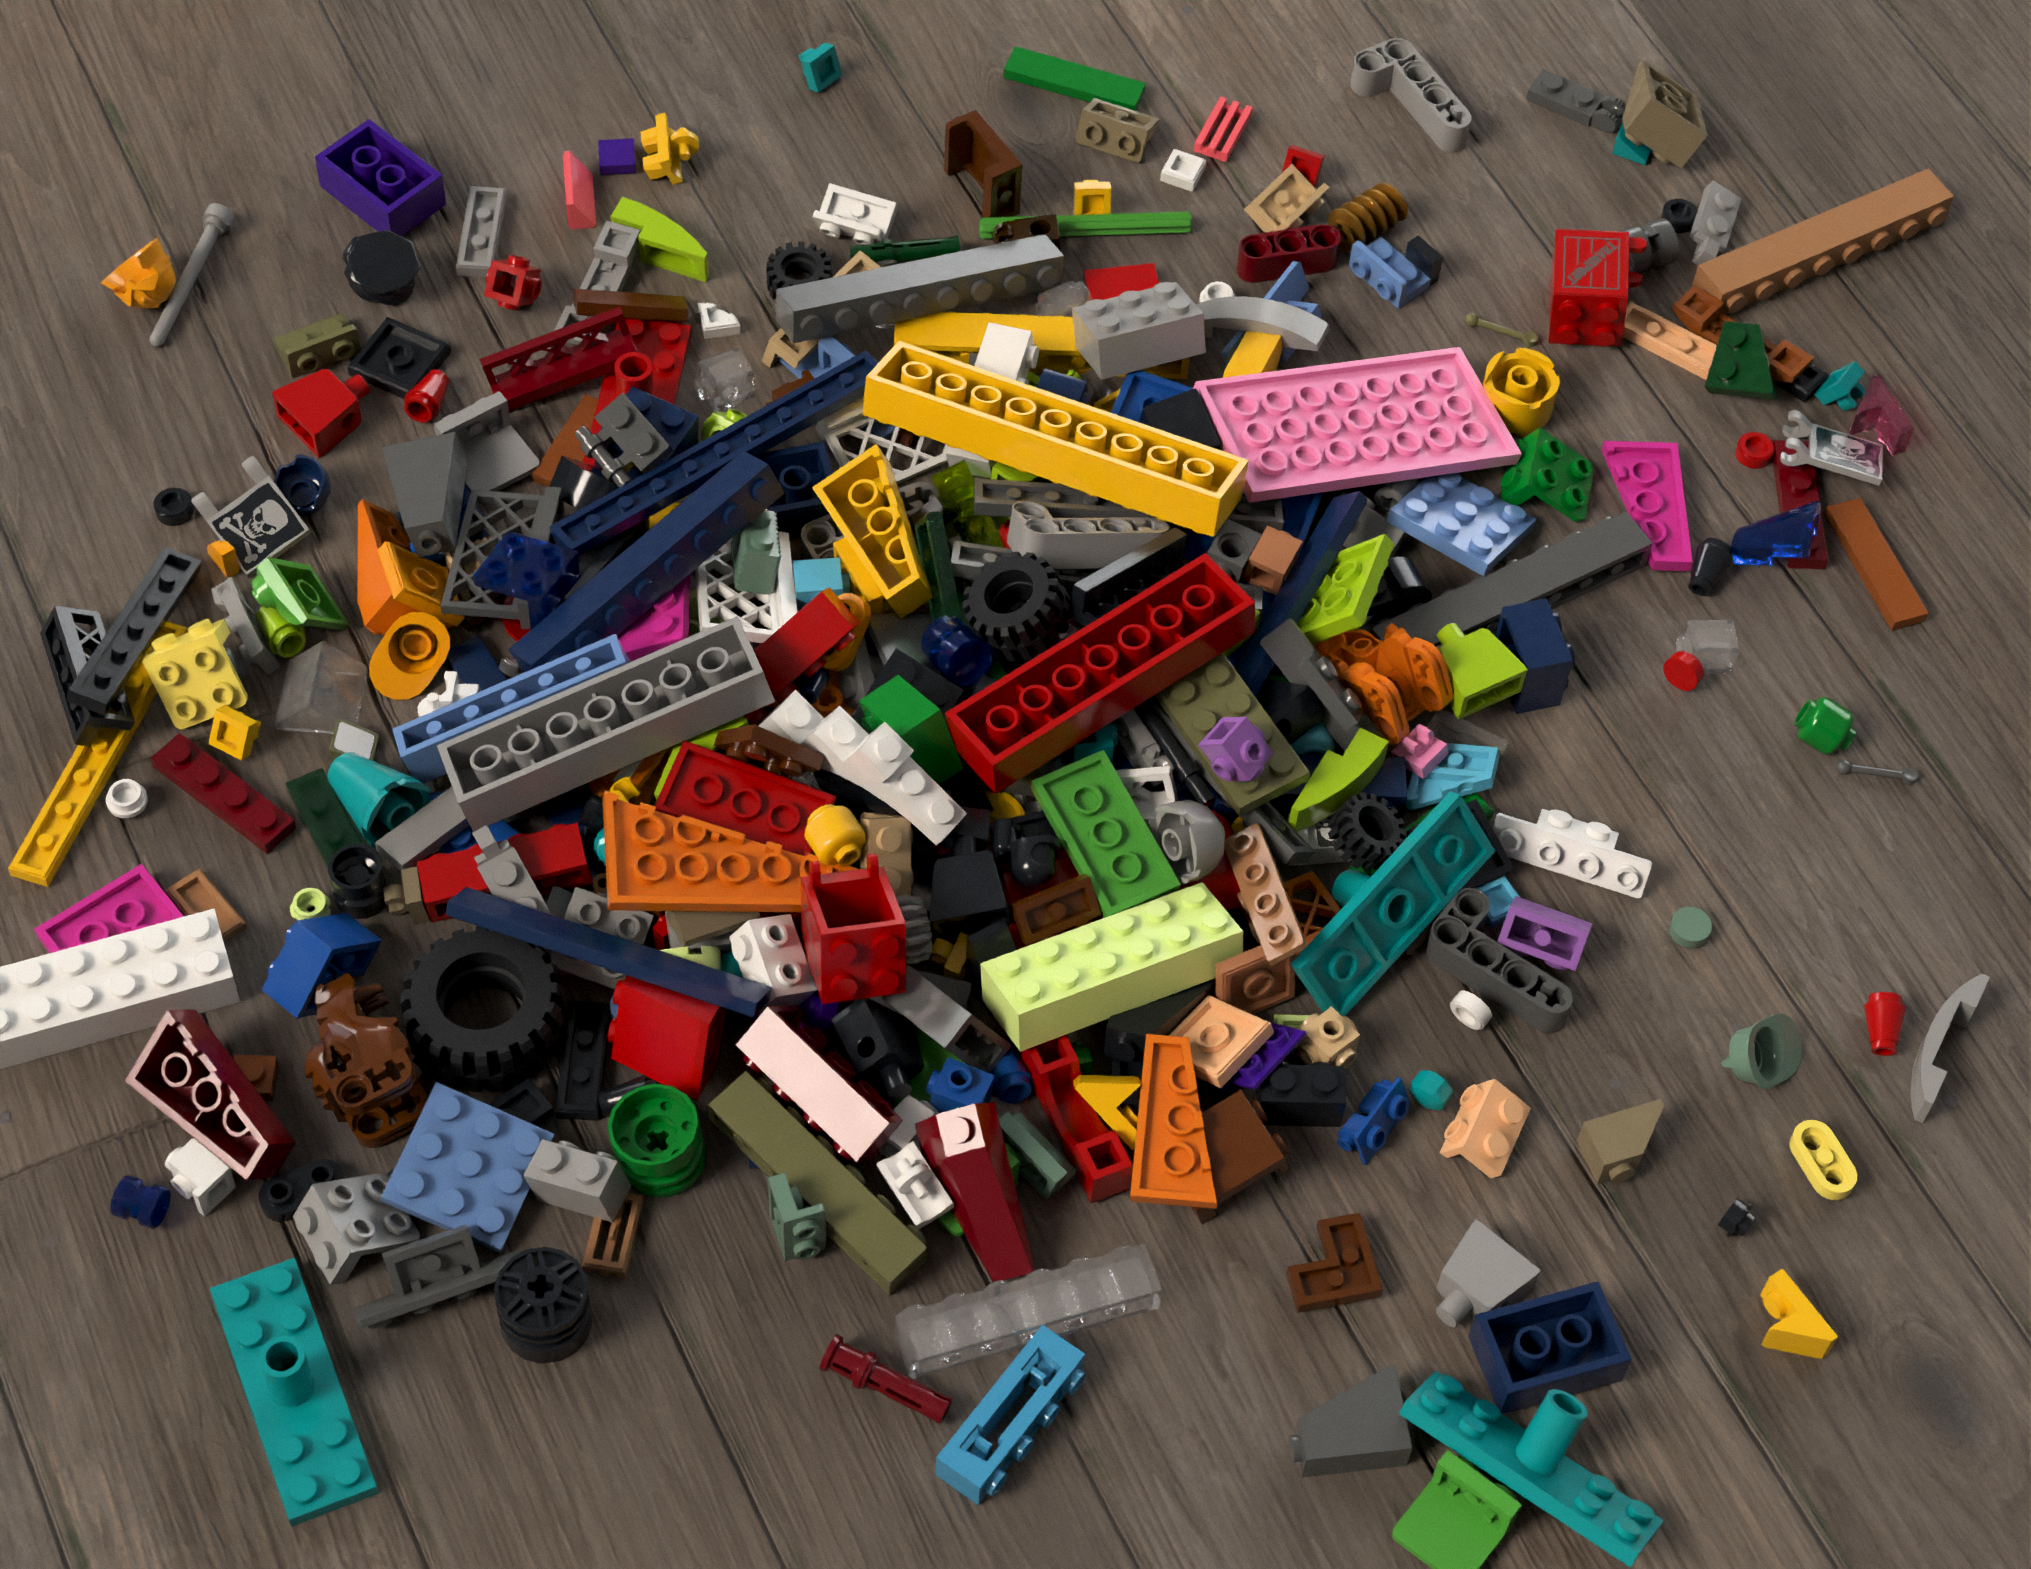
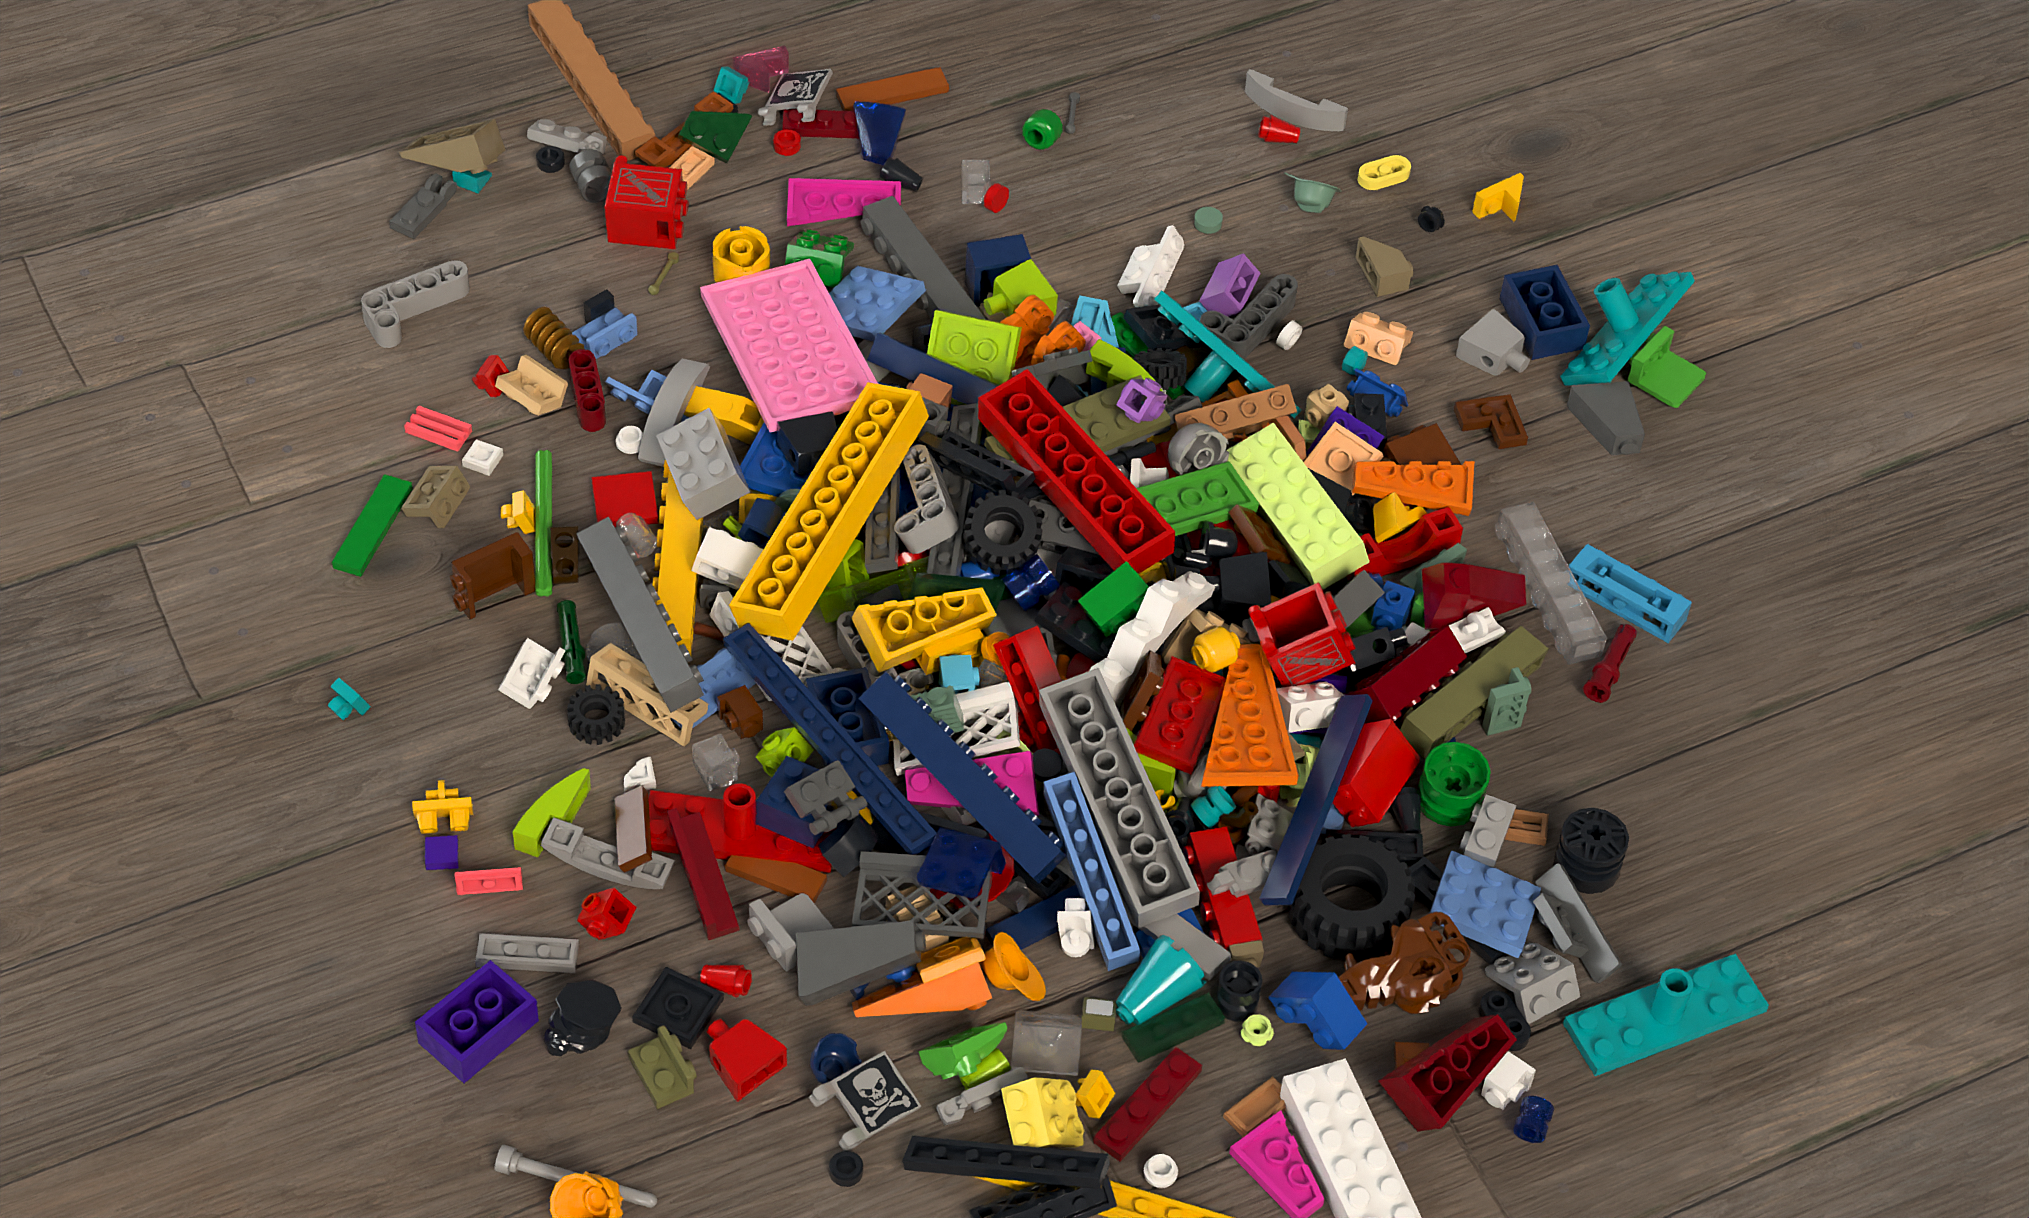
camera: 90 degrees left, 5 degrees down
(224, 556) = (907, 1122): light orange tile -> none

